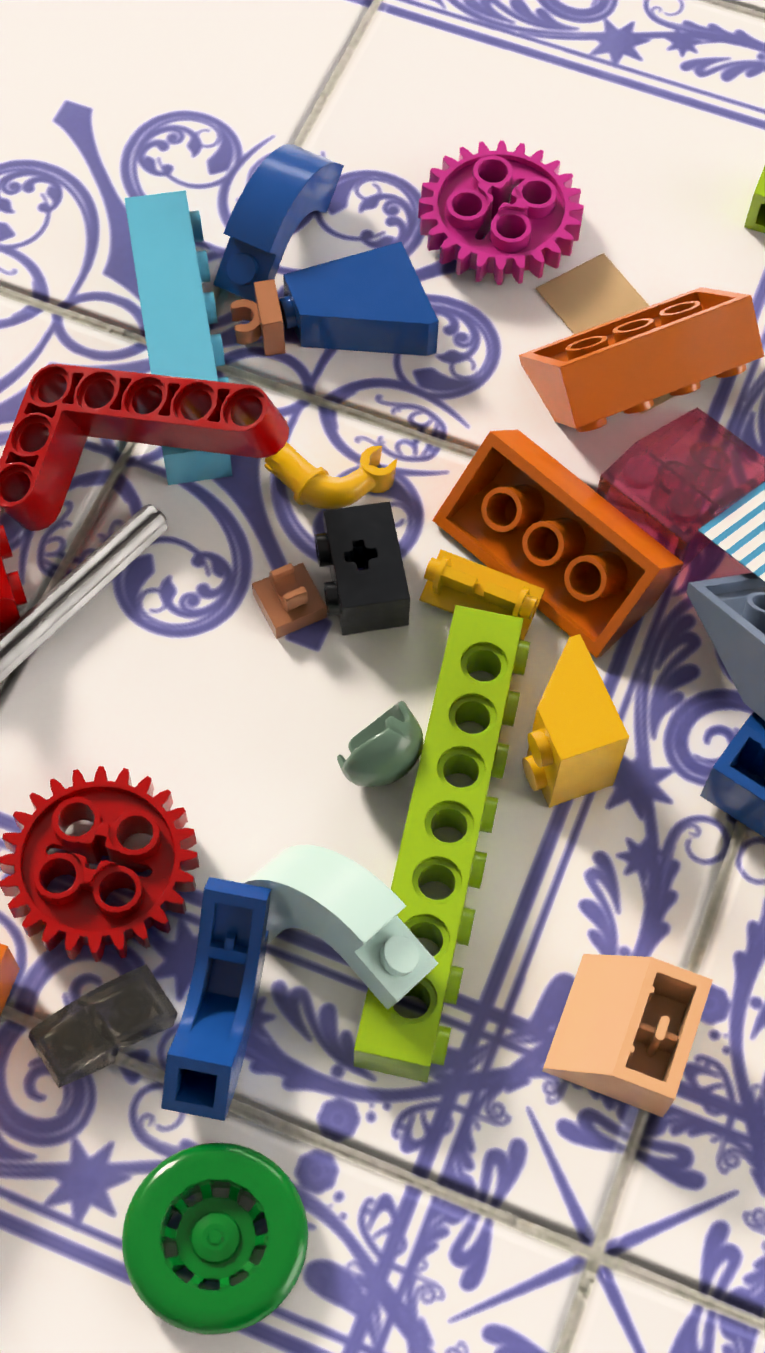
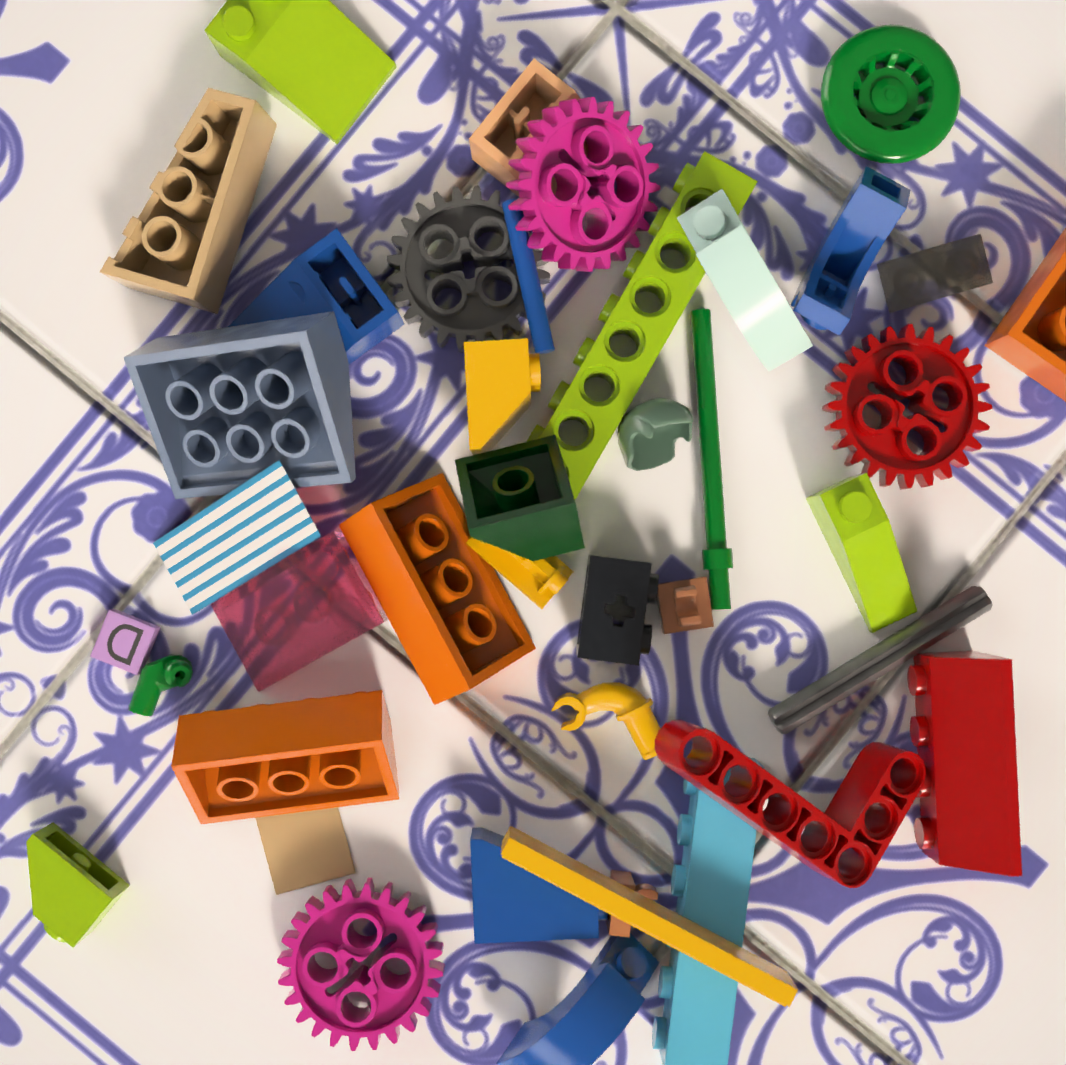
camera: 160 degrees left, 25 degrees up
(112, 704) = (864, 550): none -> lime slope
(246, 292) = (648, 916): none -> yellow tile
(270, 657) = (717, 556): none -> green bar
(506, 614) = (521, 499): none -> dark green slope
(536, 1034) = (583, 184): none -> dark pink gear
(584, 863) = (529, 282): none -> blue bar
(682, 911) = (462, 224): none -> dark grey gear

